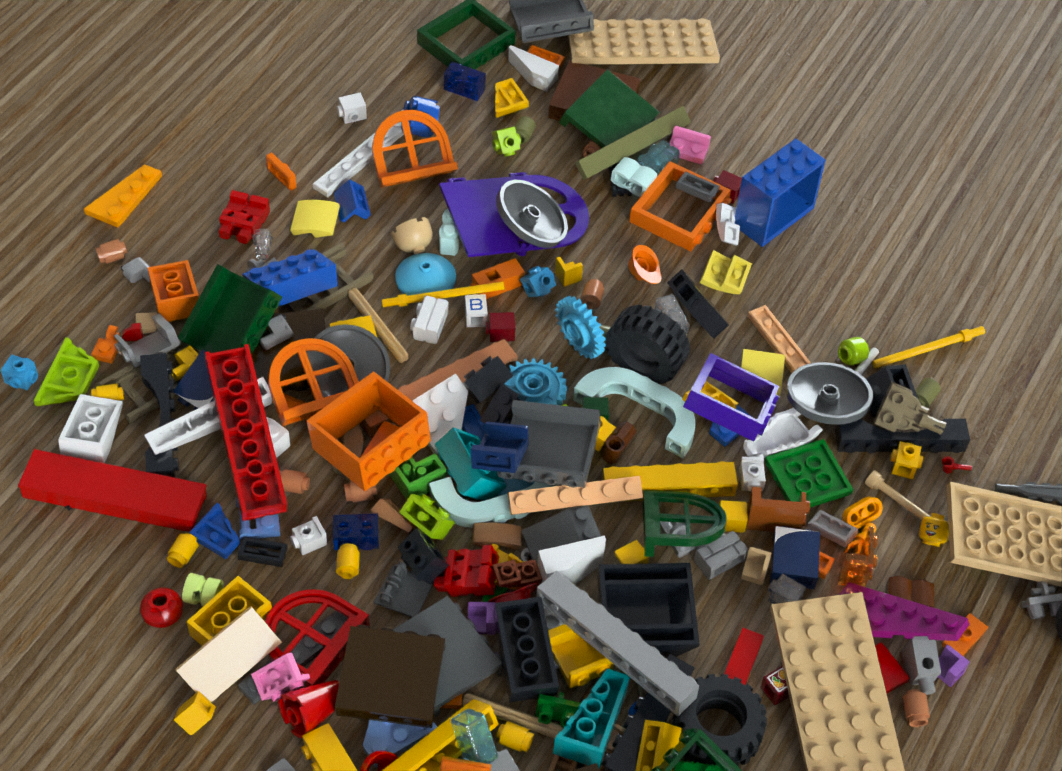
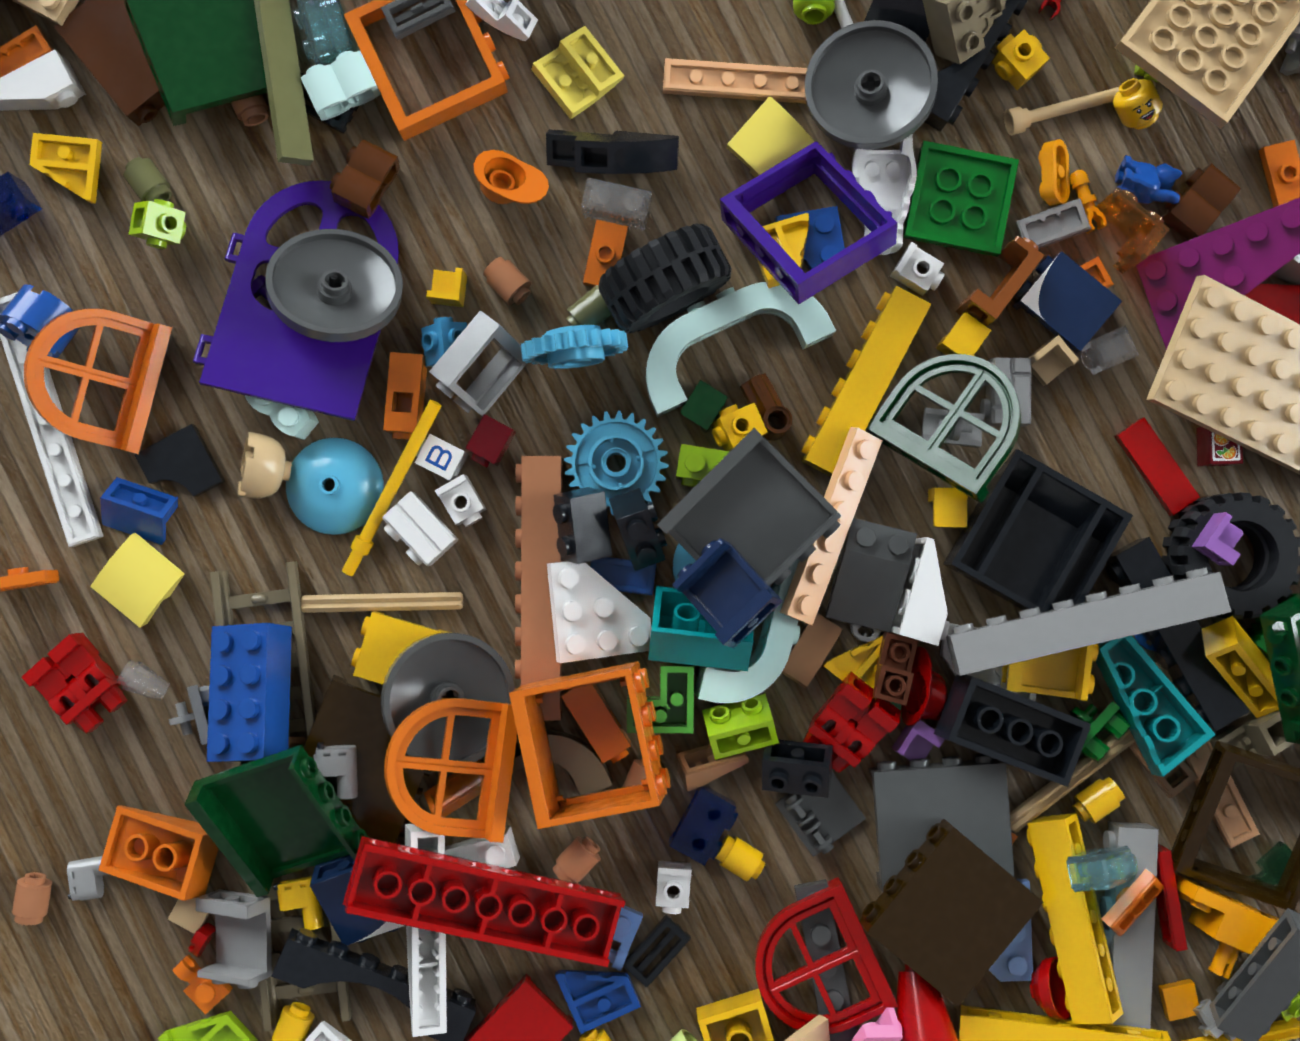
camera: 55 degrees left, 35 degrees up
(391, 208) = (181, 459): none -> black tile
(460, 330) = (461, 487): none -> white brick
(534, 313) = (495, 375): none -> light grey window
(596, 210) = (364, 178): none -> reddish brown brick
(720, 686) = (1219, 540): none -> medium lavender panel
(895, 557) = (1147, 181): none -> blue animal

